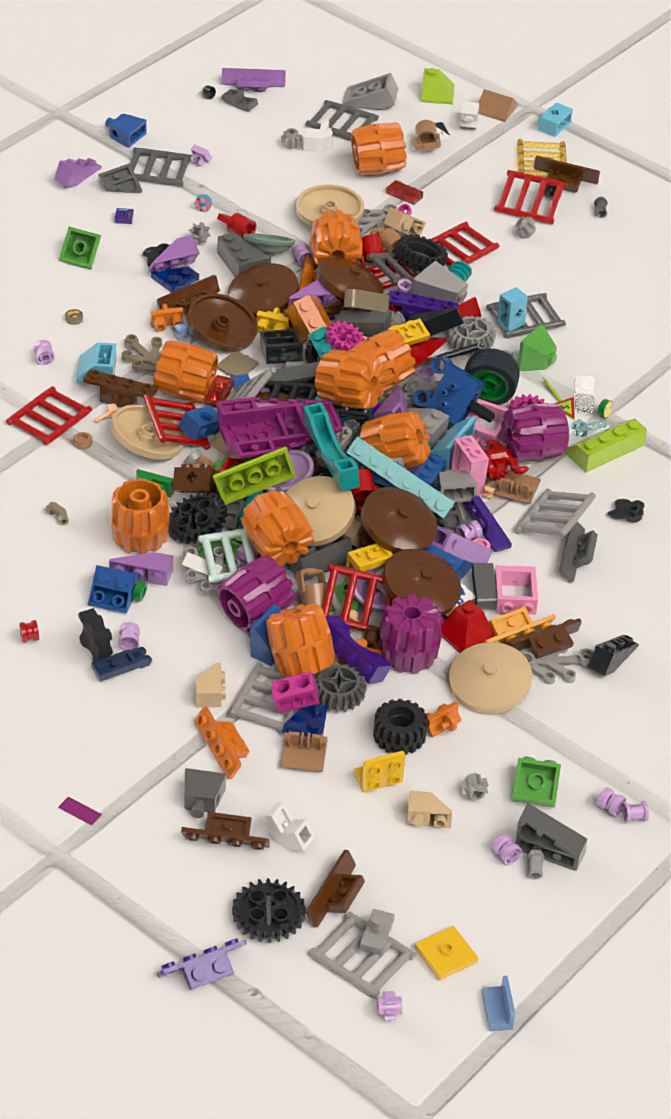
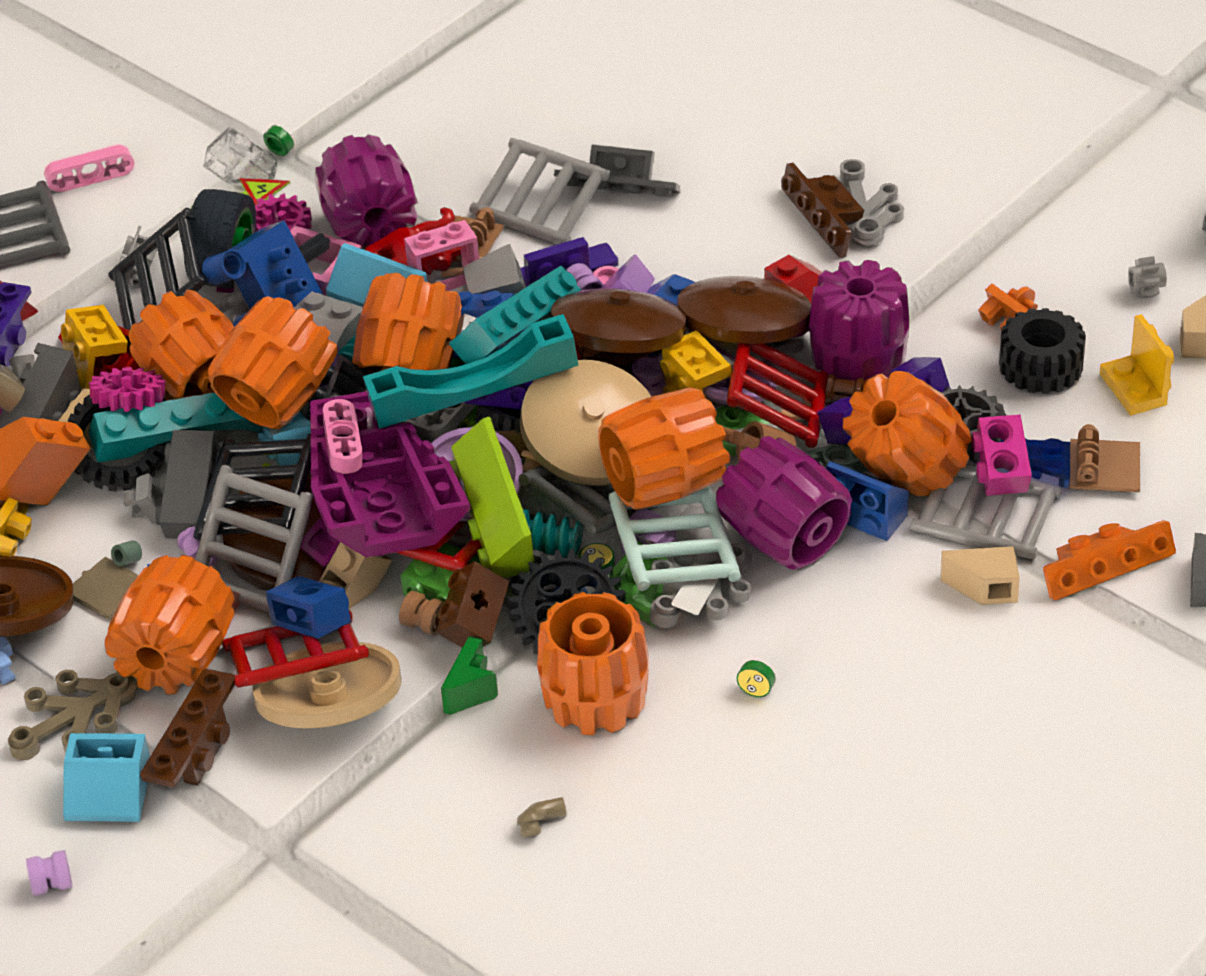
camera: 85 degrees left, 0 degrees up
(29, 631) = (878, 825): red wheel -> none
(58, 429) = (228, 894): red bar -> none
(82, 440) = (323, 798): medium nougat tile -> none
(95, 635) = (903, 715): black brick -> none
(112, 408) = (241, 755): light nougat hand -> none
(112, 588) = (752, 712): blue slope -> none
(121, 663) = (941, 696): dark blue hinge -> none
(129, 636) = (875, 684): lavender wheel -> none
(151, 566) = (695, 666): medium lavender slope -> none
(193, 457) = (391, 625): light grey tile -> none
(257, 366) = (126, 553): none -> sand green piece
(272, 346) = (100, 484): black window -> none
(280, 403) = (339, 445): none -> bright pink beam
(438, 320) = (44, 313): black slope -> none
(472, 332) = (69, 282): light grey gear -> none
(484, 585) = (707, 263): dark grey beam -> none
(490, 678) = (929, 255): tan dish -> none
(512, 309) = (36, 215): medium azure brick -> none
(516, 577) = (717, 253): bright pink window -> none
(516, 624) = (801, 235): light orange bracket -> none
(536, 781) = (1122, 216): bright green plate -> none
(537, 350) = (130, 203): bright green slope -> none
(576, 337) = (100, 174): none -> bright pink beam
(581, 428) = (311, 157): clear light blue bar -> none
(607, 444) = (355, 114): lime slope -> none
(611, 654) = (846, 141): black slope -> none
(611, 801) = (1143, 151): lavender wheel -> none
(626, 509) = (517, 124): black plate -> none
(635, 811) = (1159, 131): lavender bush -> none

